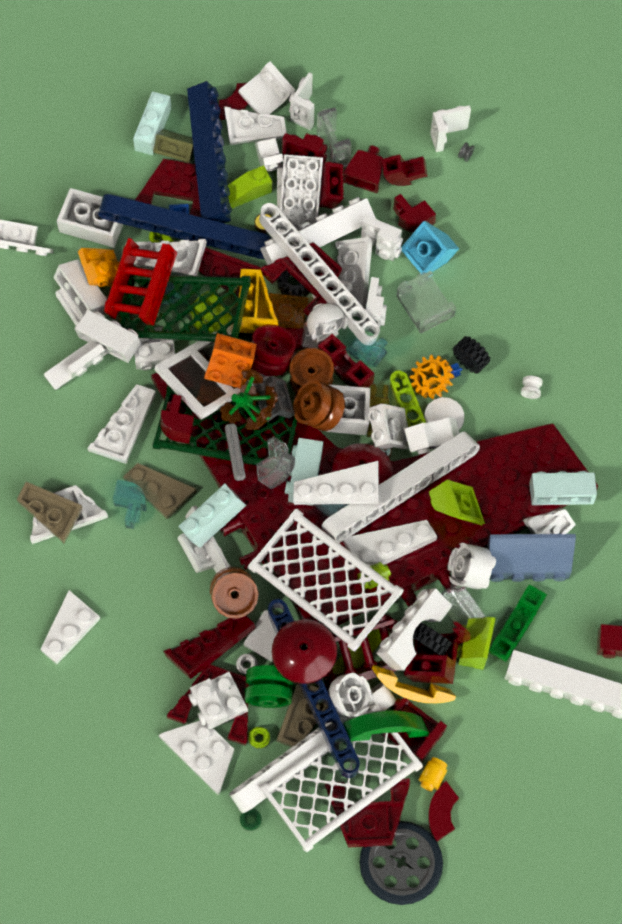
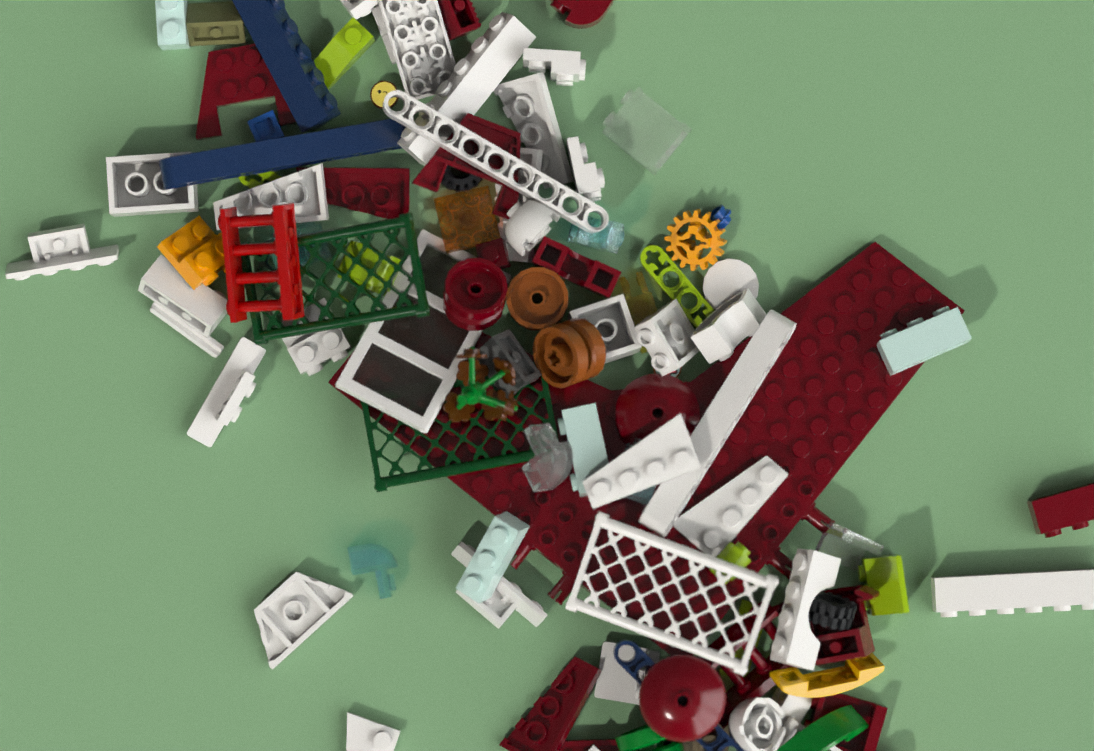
camera: 20 degrees left, 20 degrees up
(50, 510) = (279, 621): dark tan wing -> none
(110, 334) = (250, 352): white brick -> none
(124, 426) = (322, 465): white wing -> none
(160, 490) = (402, 532): dark tan wing -> none
(174, 424) = (394, 456): dark red brick -> none
(229, 359) = (432, 339): orange bracket -> none
(235, 452) = (487, 460): light grey axle -> none
(245, 594) = (558, 642): dark orange wheel -> none
(245, 658) = (615, 726): white plate -> none
(258, 306) = (435, 241): yellow wedge -> none
(429, 248) = (622, 50): medium azure slope -> none
(456, 501) = (798, 419): lime slope -> none
(471, 354) = (736, 189): black tyre -> none
(471, 566) = (846, 500): white brick -> none
(517, 623) = (925, 537): green slope -> none
(531, 387) = (830, 201): white wheel -> none
(532, 556) = (912, 451): sand blue slope -> none
(550, 523) = (922, 392): white wing -> none

